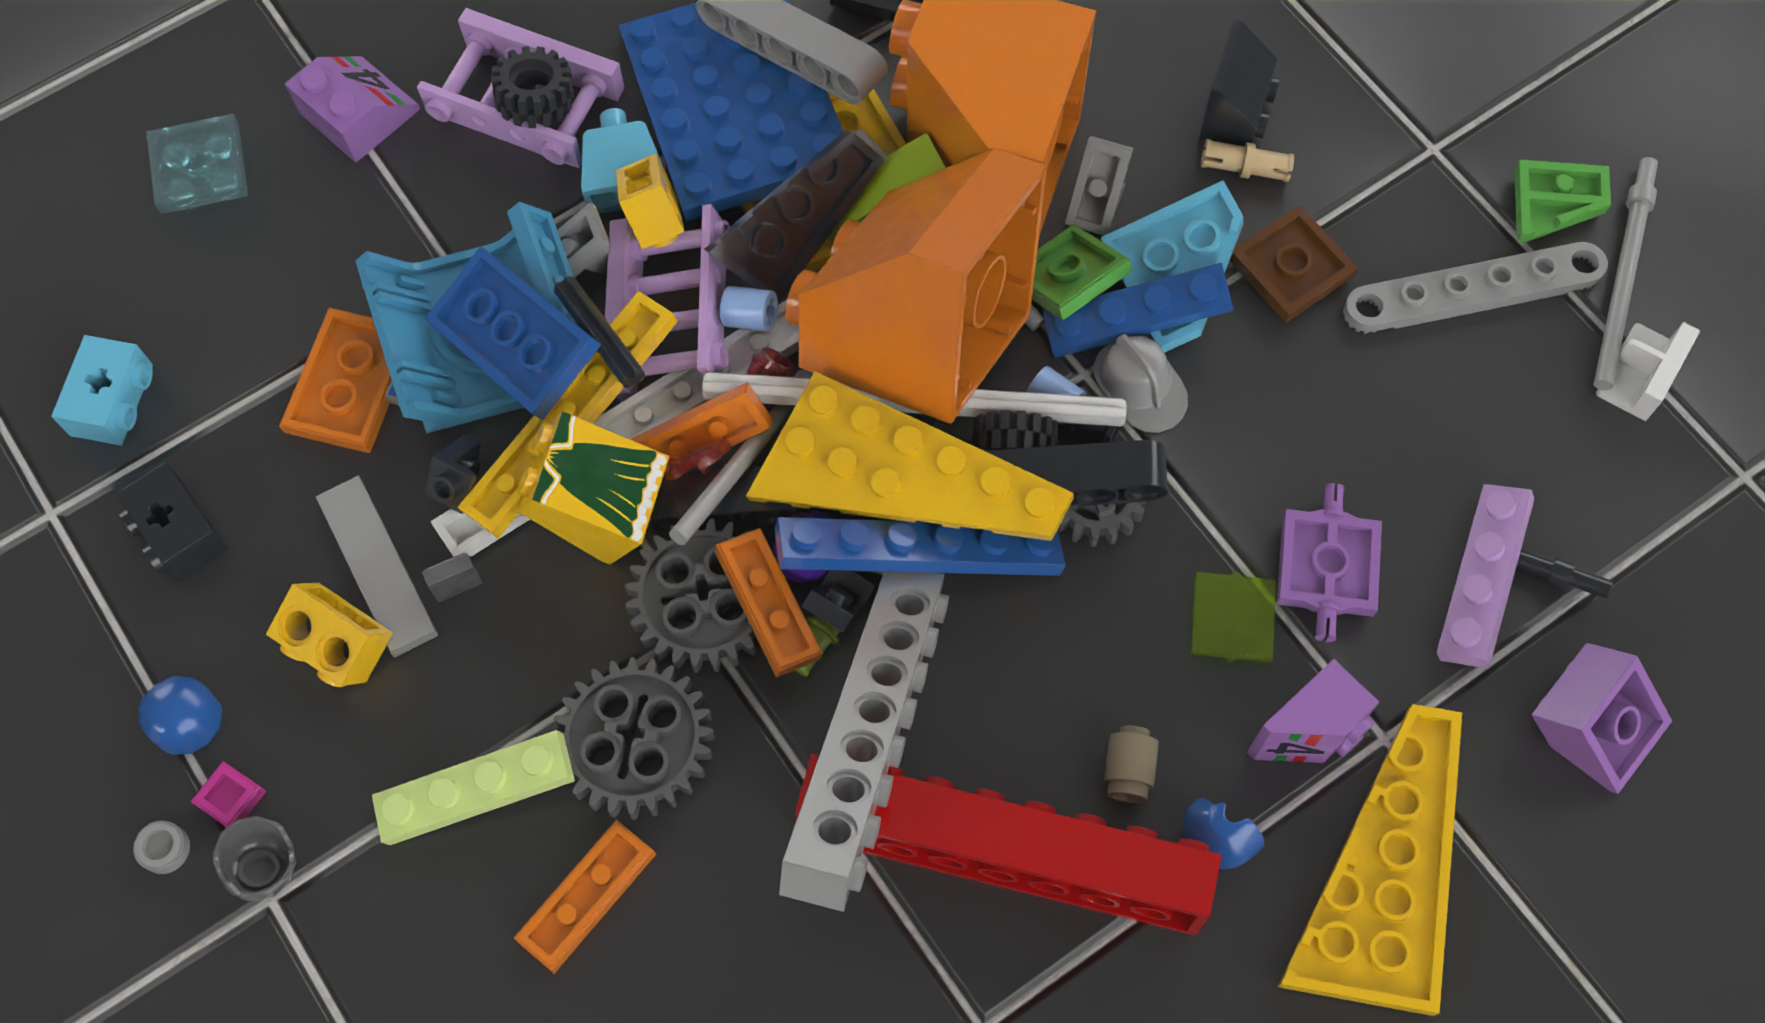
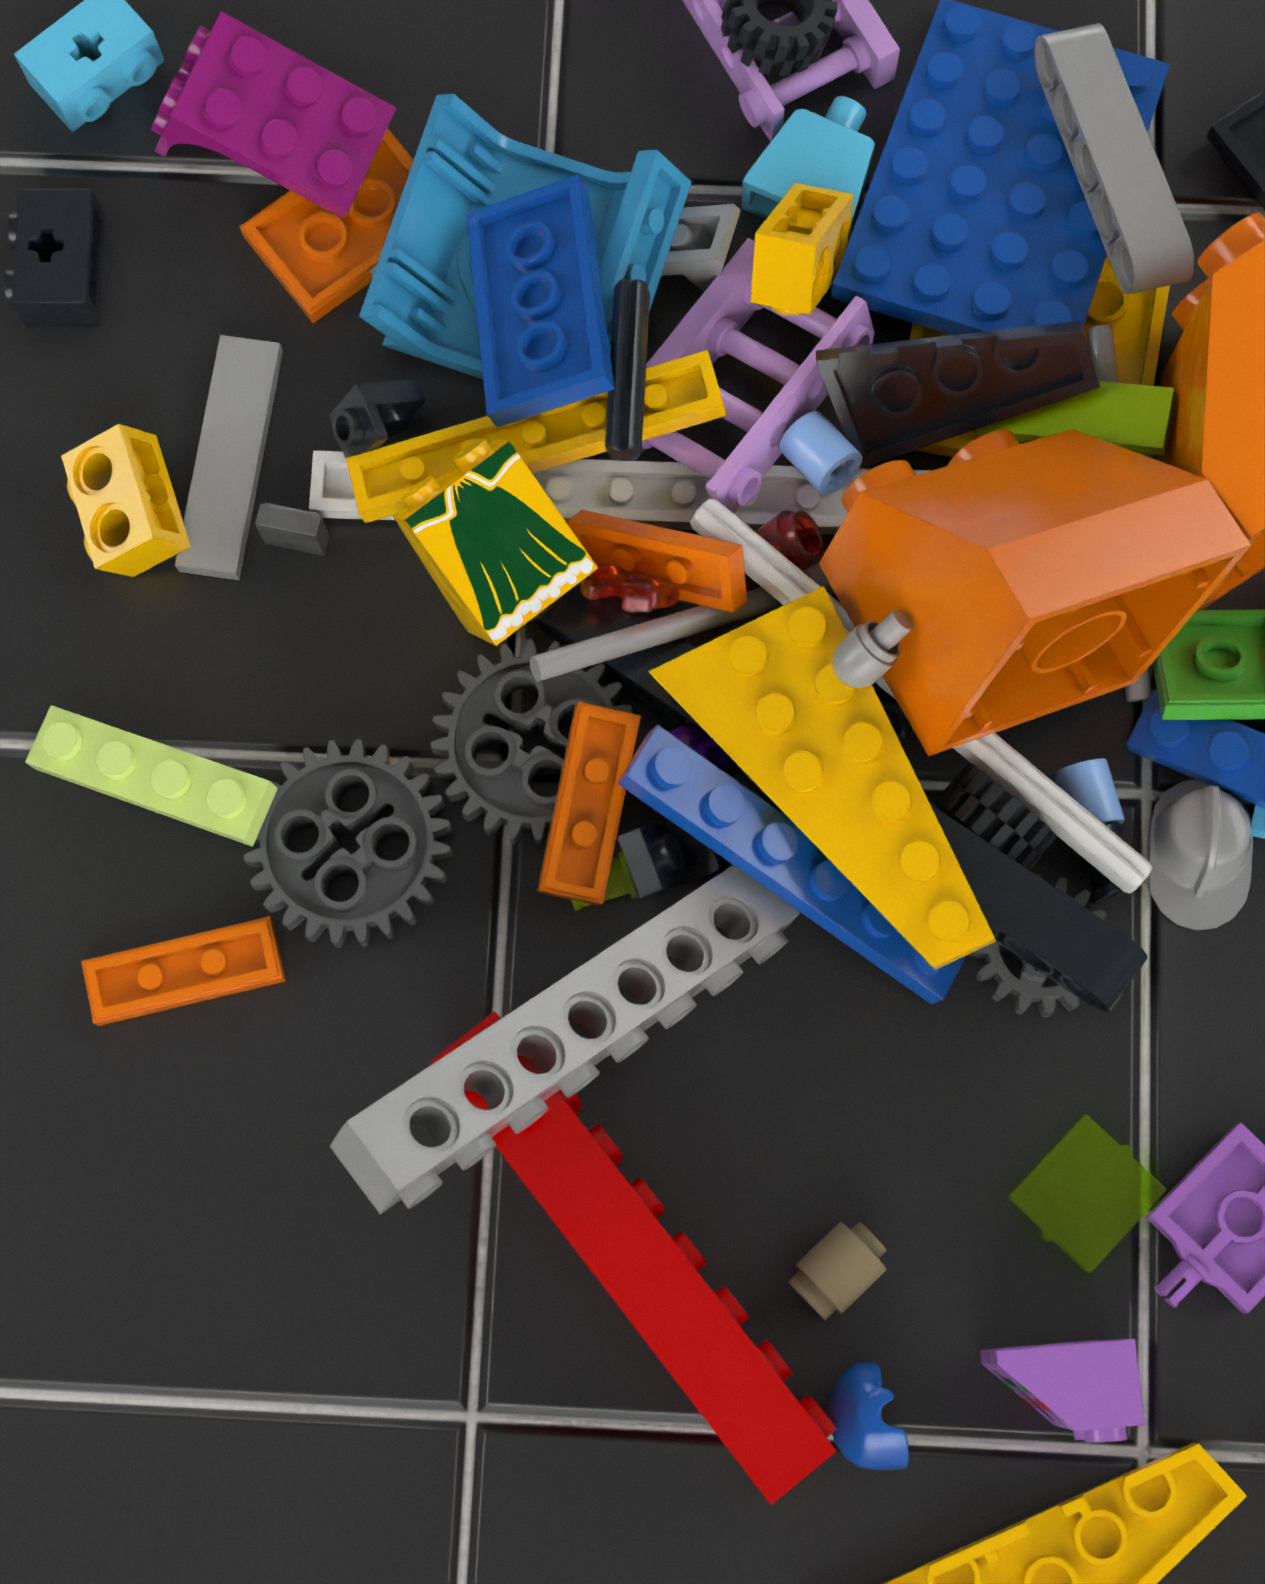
camera: 40 degrees right, 10 degrees up
(252, 340) = (273, 114): none -> magenta bracket
(873, 381) = (870, 650): none -> light grey cylinder

